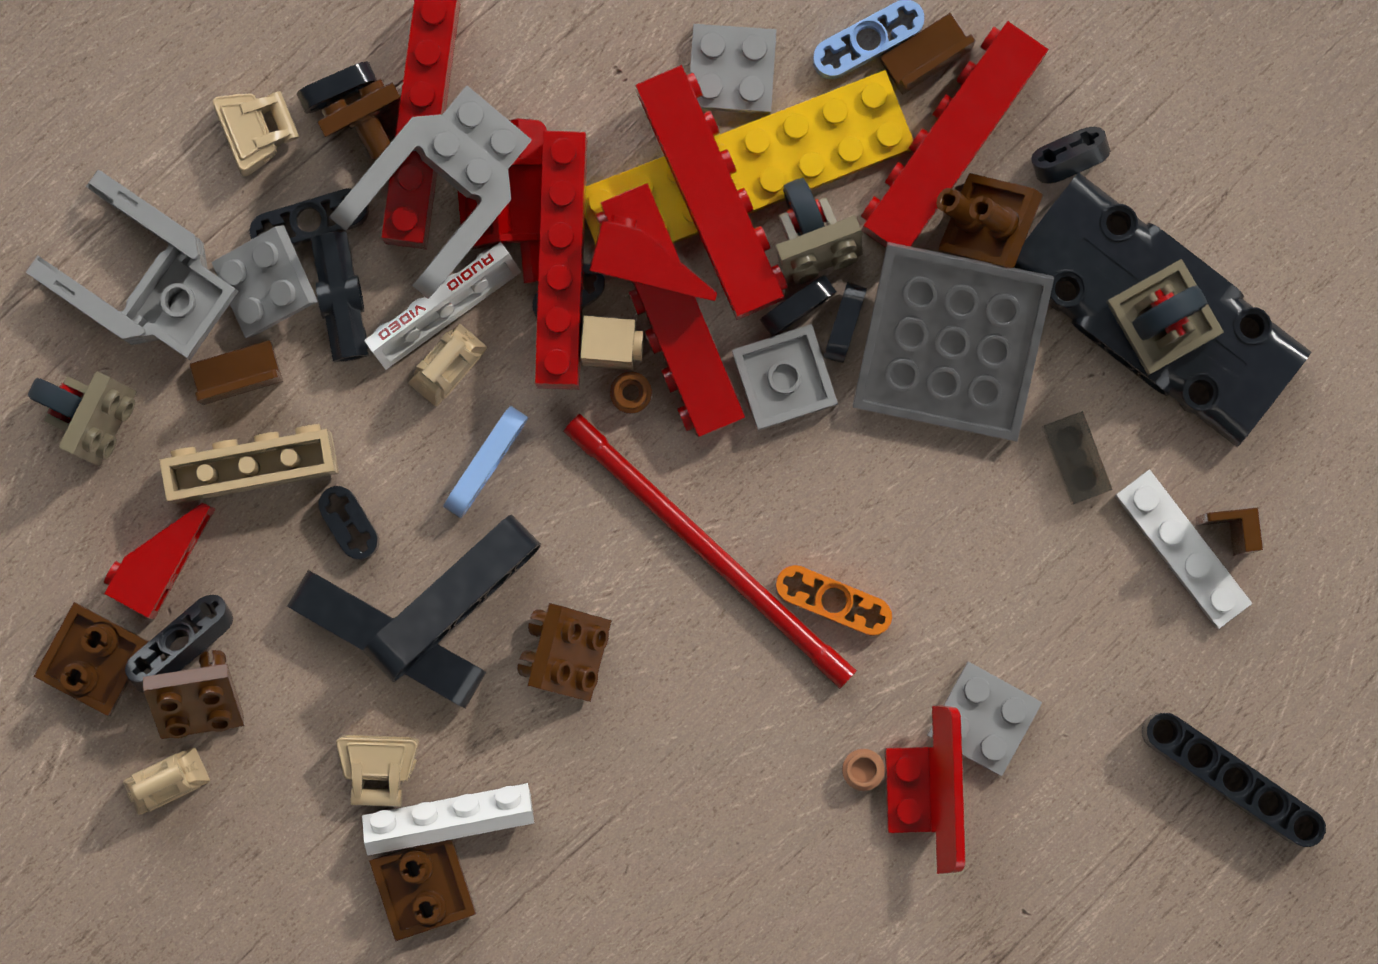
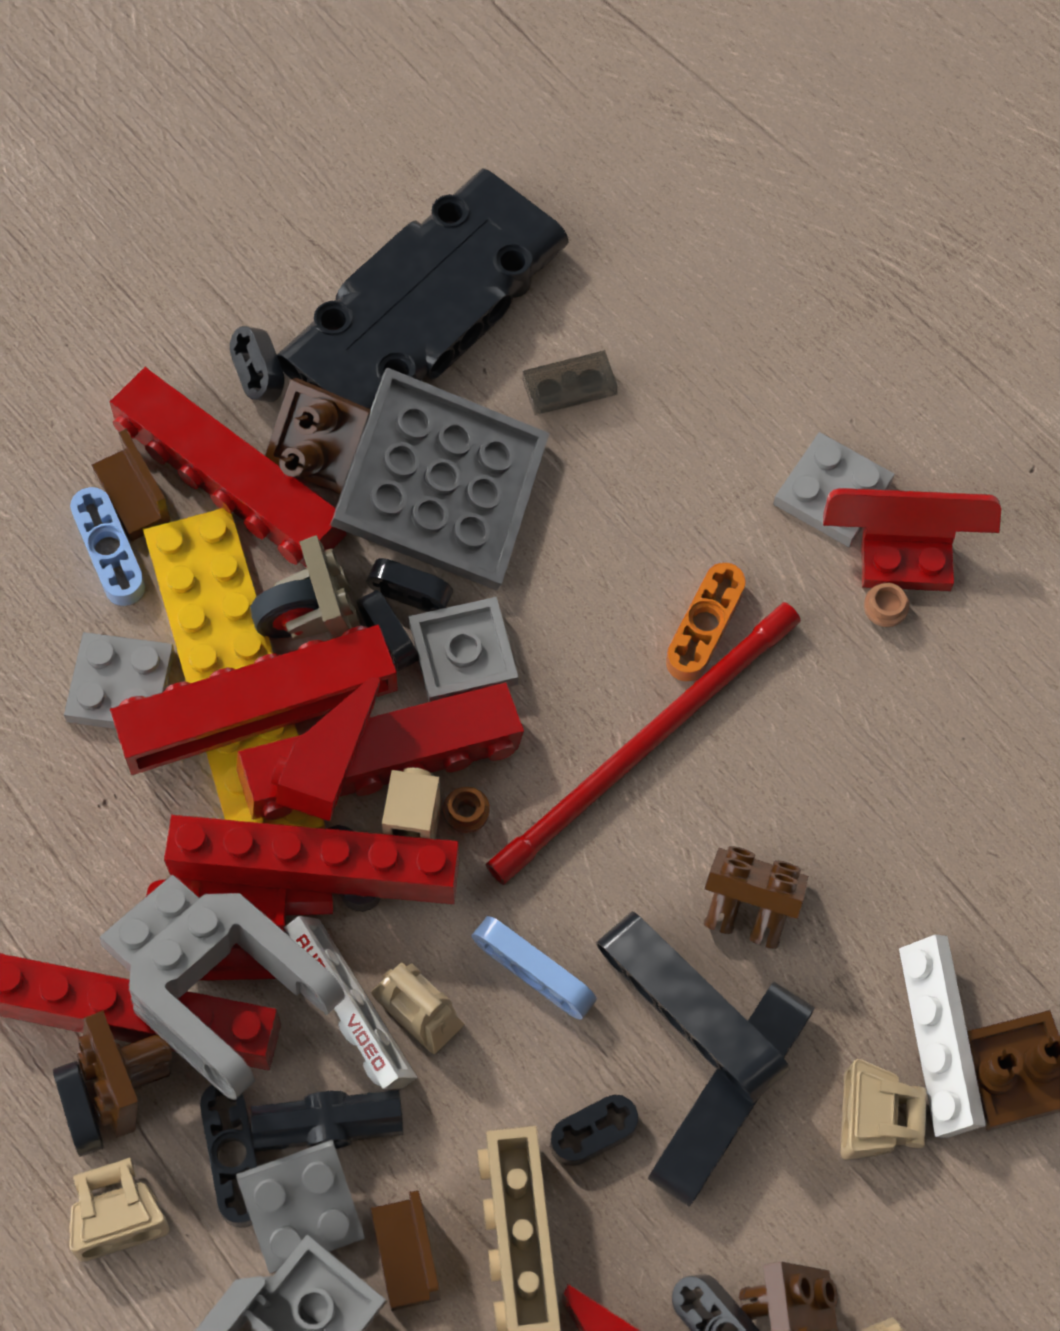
camera: 90 degrees left, 20 degrees down
(1165, 317) = (434, 273): dark tan plate -> none
(1183, 549) = (666, 300): white plate -> none
(1243, 527) = (654, 235): reddish brown panel -> none
(1253, 784) = (893, 285): black beam -> none

